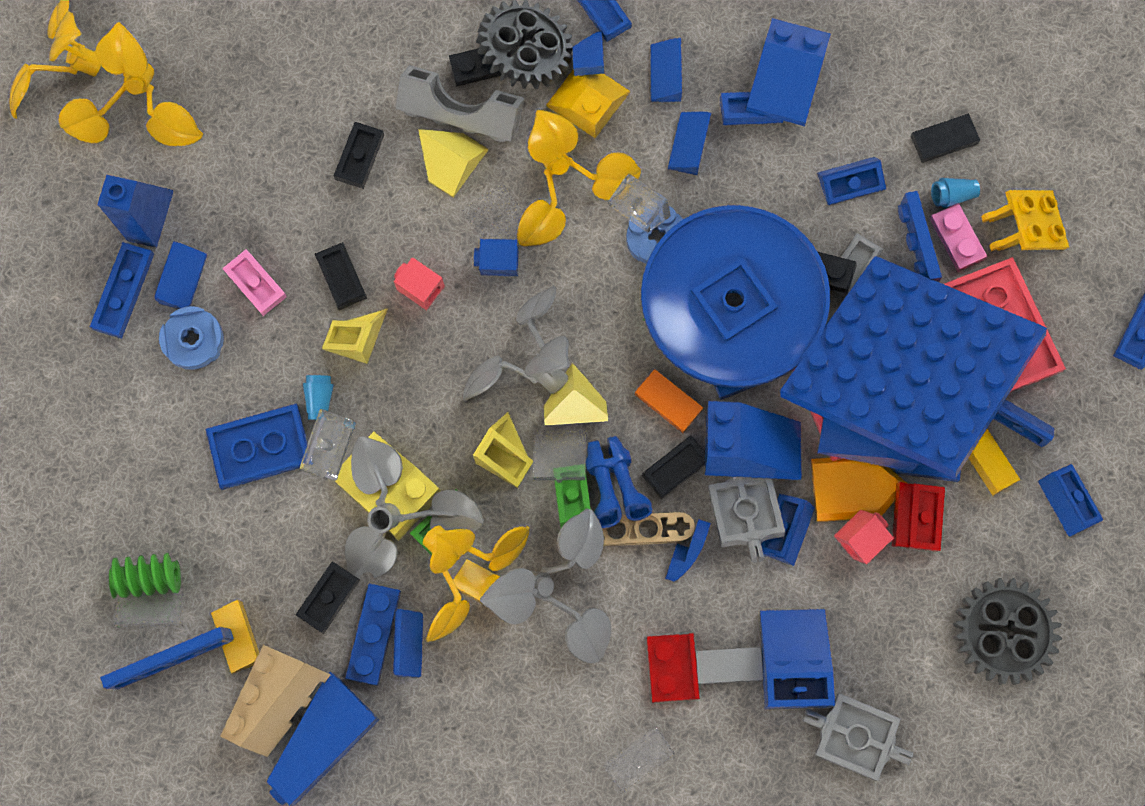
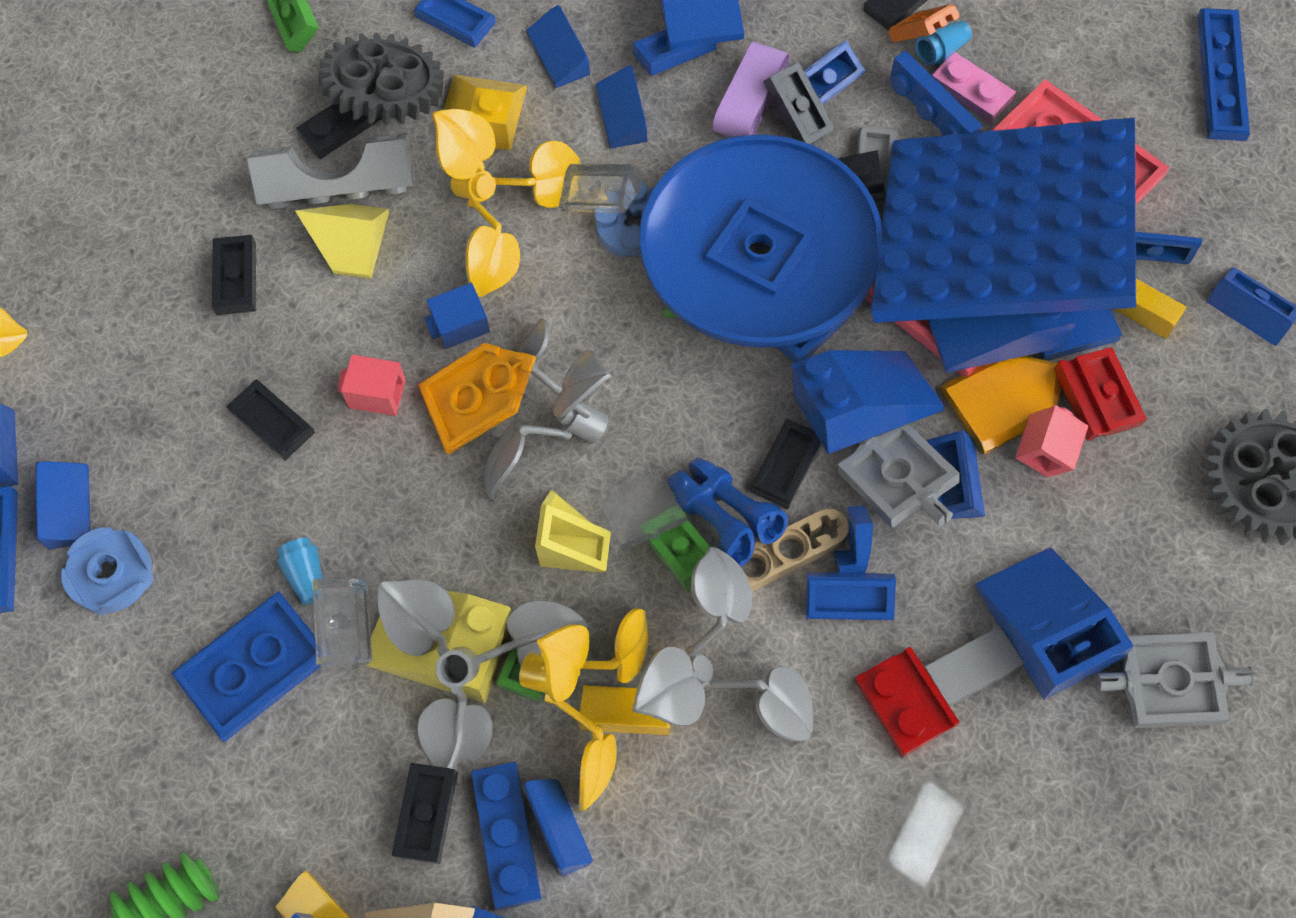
camera: 25 degrees left, 10 degrees down
(254, 282) = (163, 470): bright pink plate -> none
(355, 336) = (318, 482): light yellow slope -> none
(485, 322) = (476, 393): none -> light orange tile
(575, 402) = (628, 441): light yellow slope -> none
(589, 56) = (463, 62): blue slope -> none
(668, 401) = (740, 393): orange tile -> none
(670, 580) = (850, 596): none -> blue tile
(789, 170) = (747, 95): none -> lavender beam
(817, 199) = (799, 104): none -> plate
(937, 174) = (923, 23): none -> orange tile
(1036, 220) = (1045, 25): yellow plate -> none

